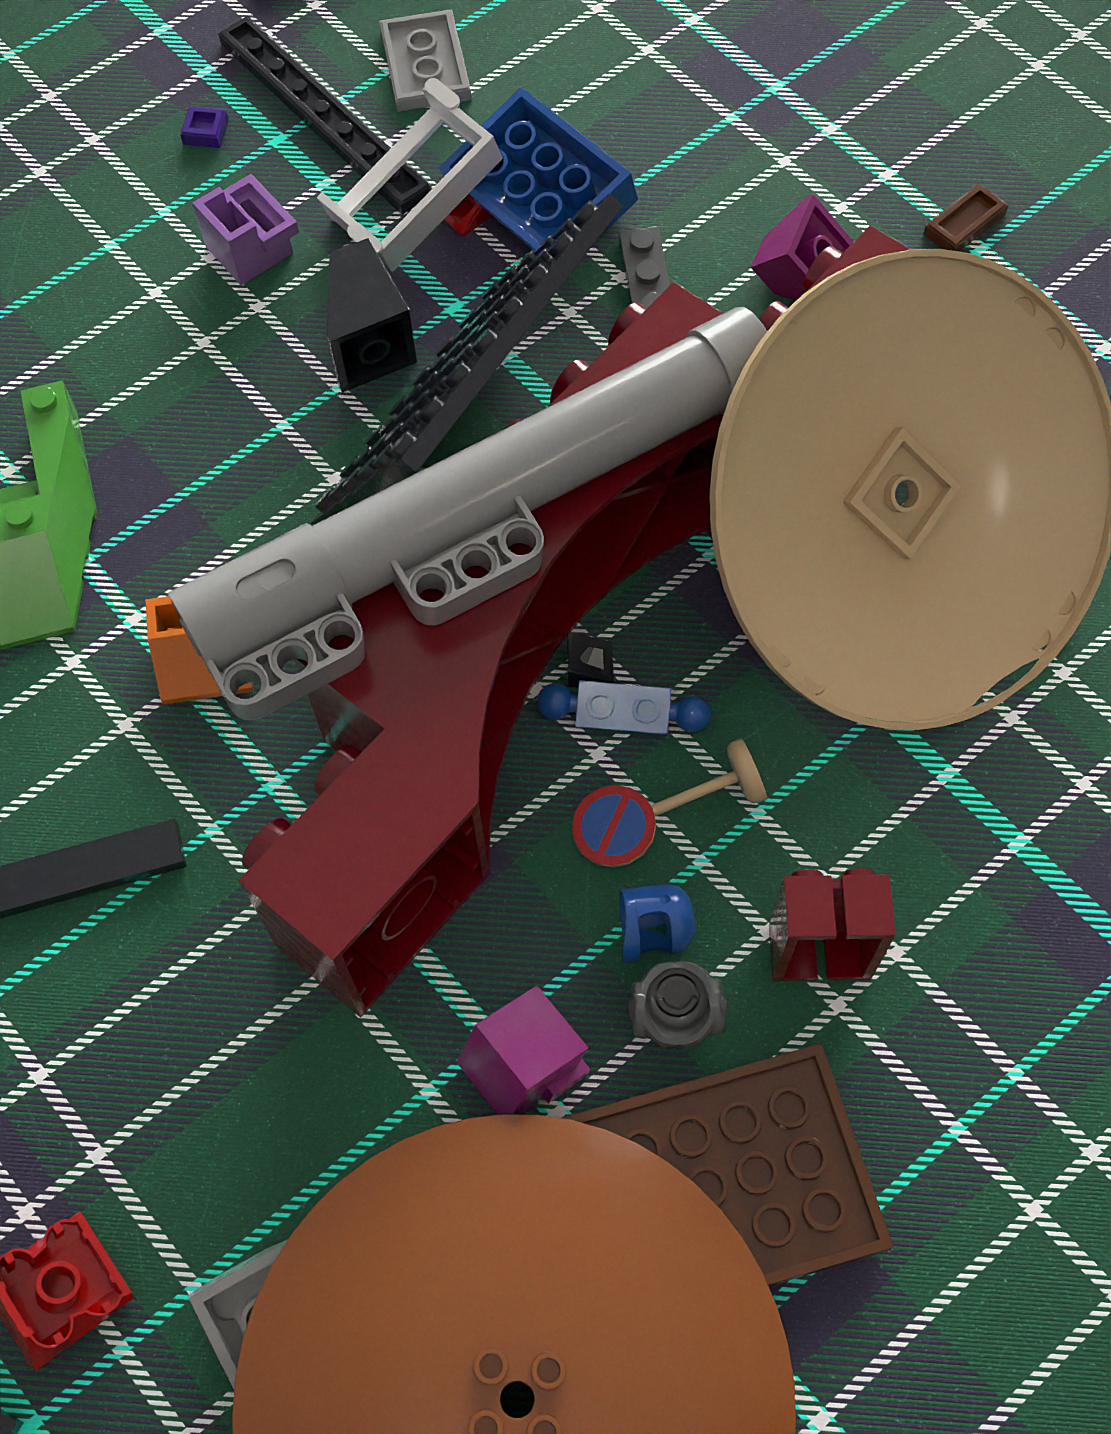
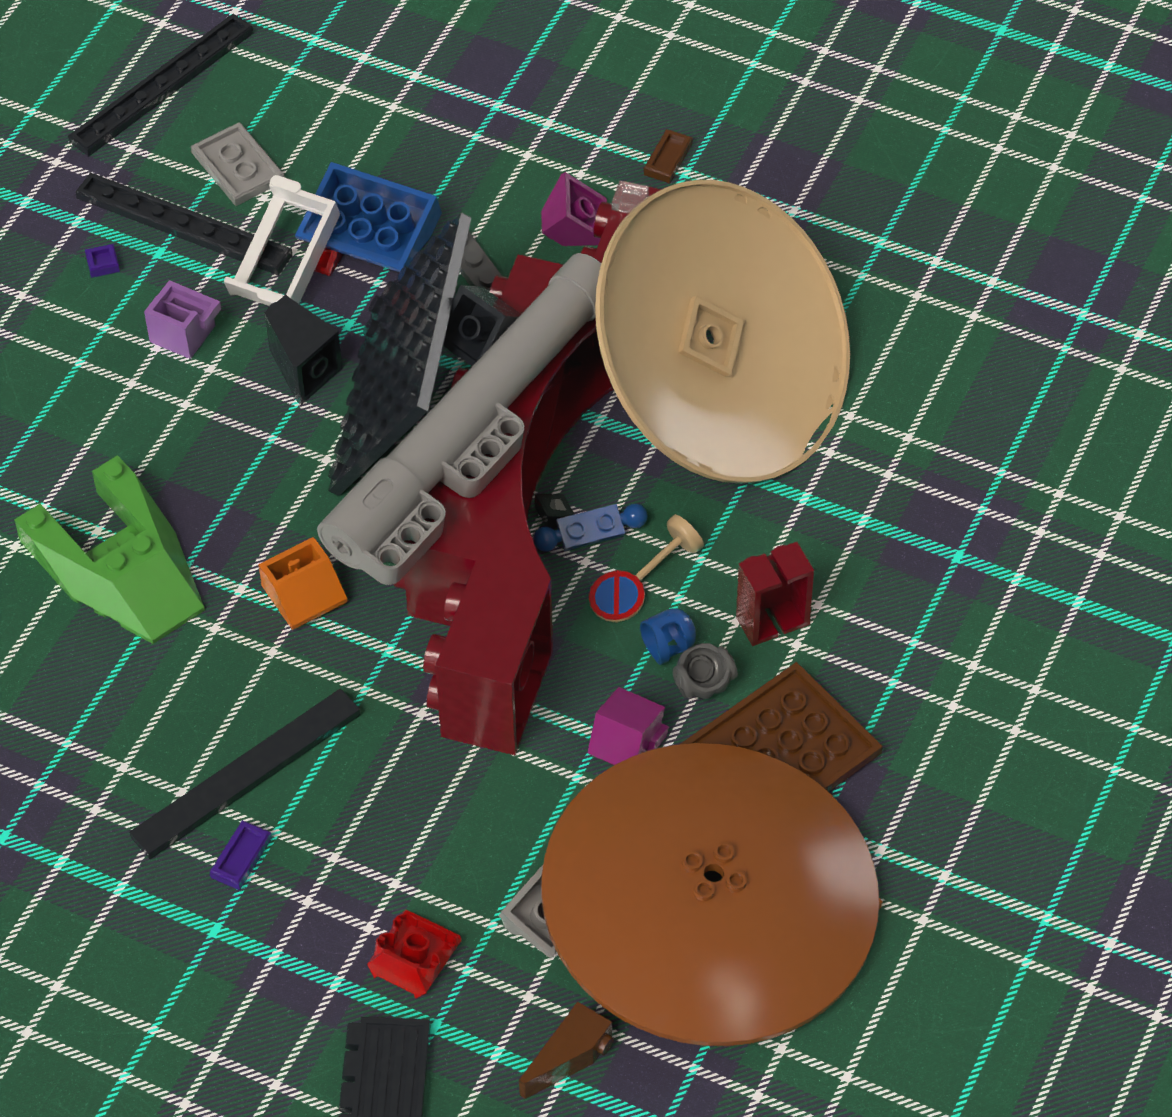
camera: 25 degrees left, 10 degrees down
(558, 357) = (476, 322): none -> black slope
(865, 244) = (628, 196): none -> clear tile

